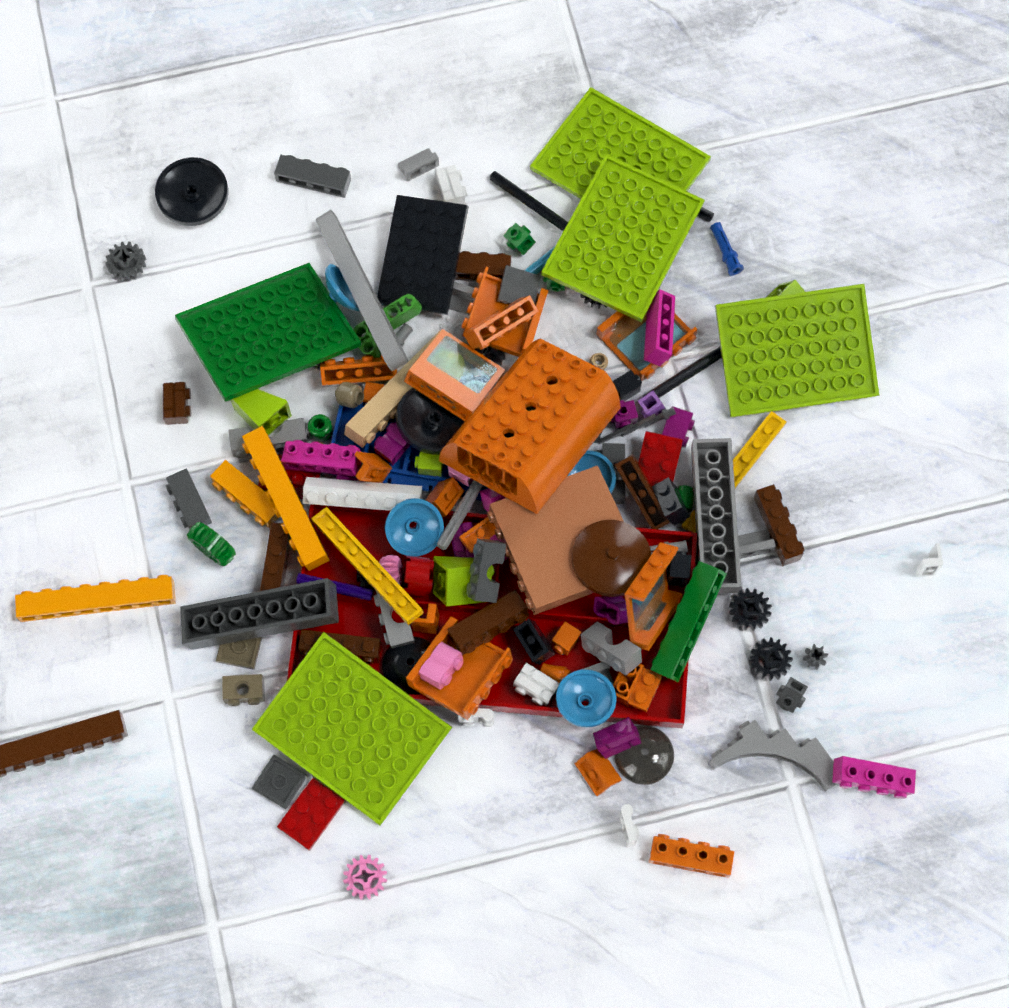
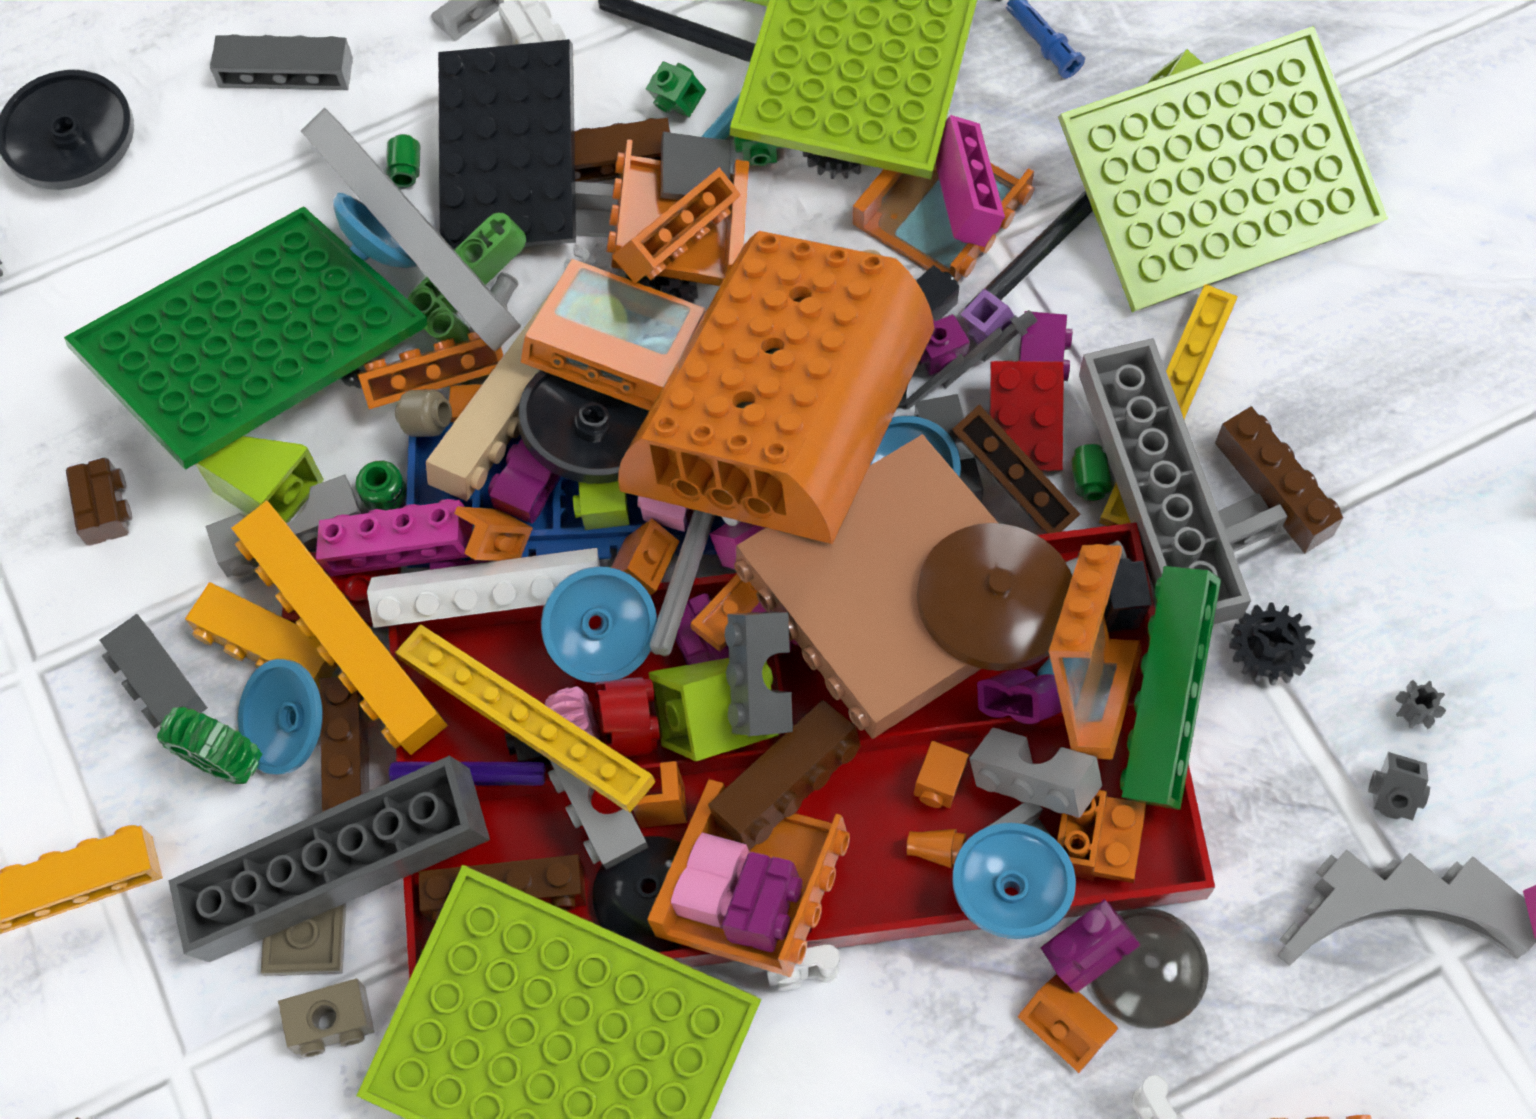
camera: 10 degrees left, 5 degrees down
(249, 536) = (281, 715): none -> dark azure dish
(366, 247) = (403, 160): none -> green brick
(462, 681) = (762, 901): none -> magenta brick
(534, 641) = (881, 793): black brick -> none
(536, 685) = (905, 878): white brick -> none
(671, 501) = (1072, 476): black brick -> none
(763, 656) = (1353, 721): black gear -> none

